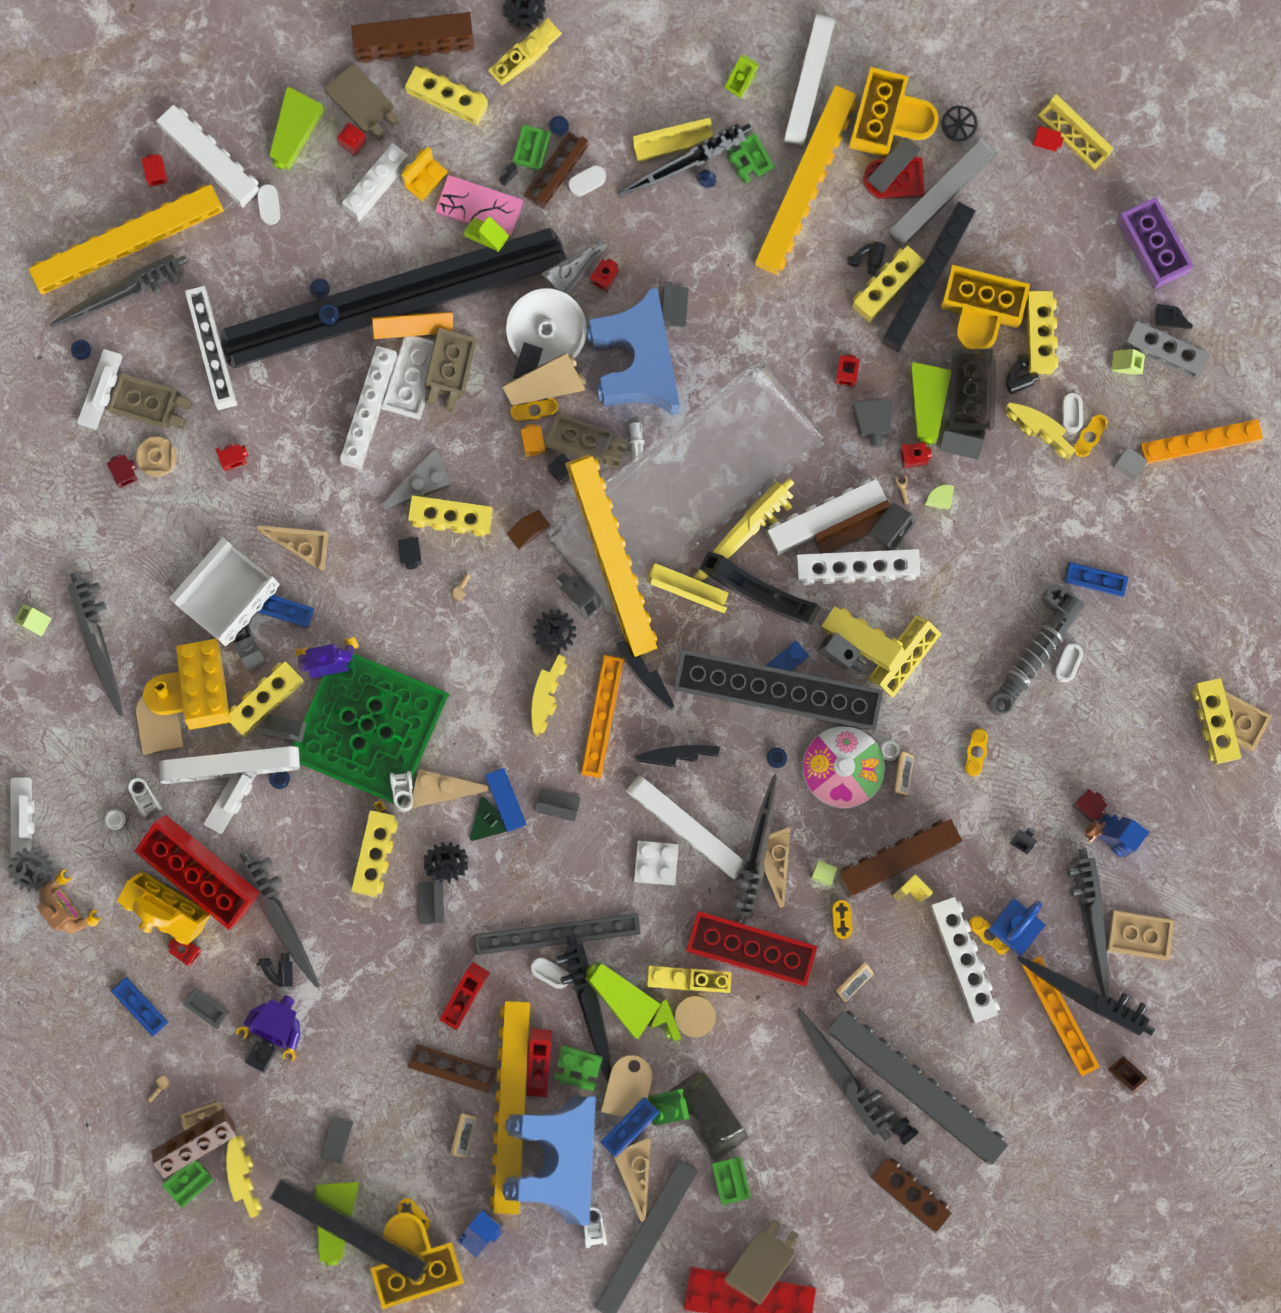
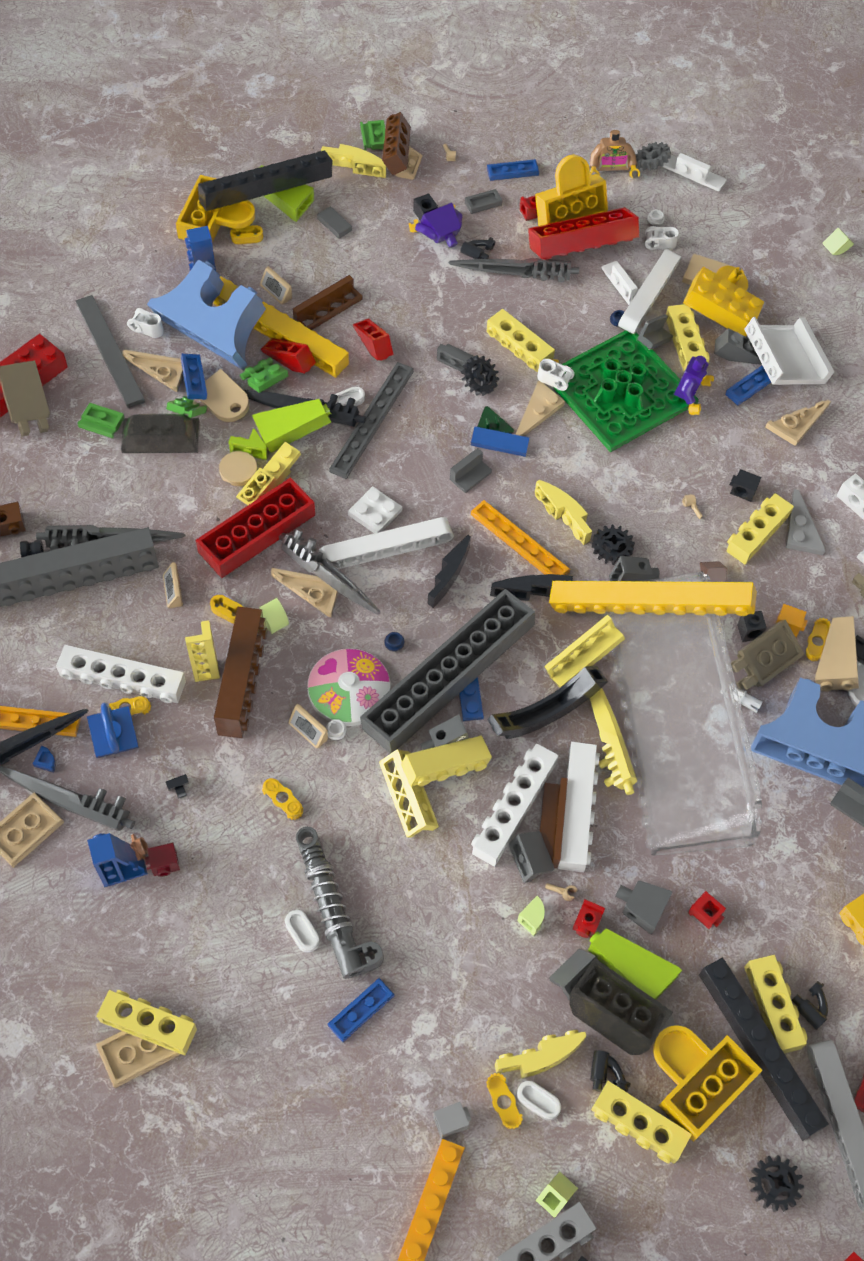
camera: 125 degrees right, 20 degrees down
(87, 617) = (804, 270): dark grey piece -> none
(1026, 217) = (786, 1188): none -> black gear
(1074, 965) = (45, 760): none -> blue tile

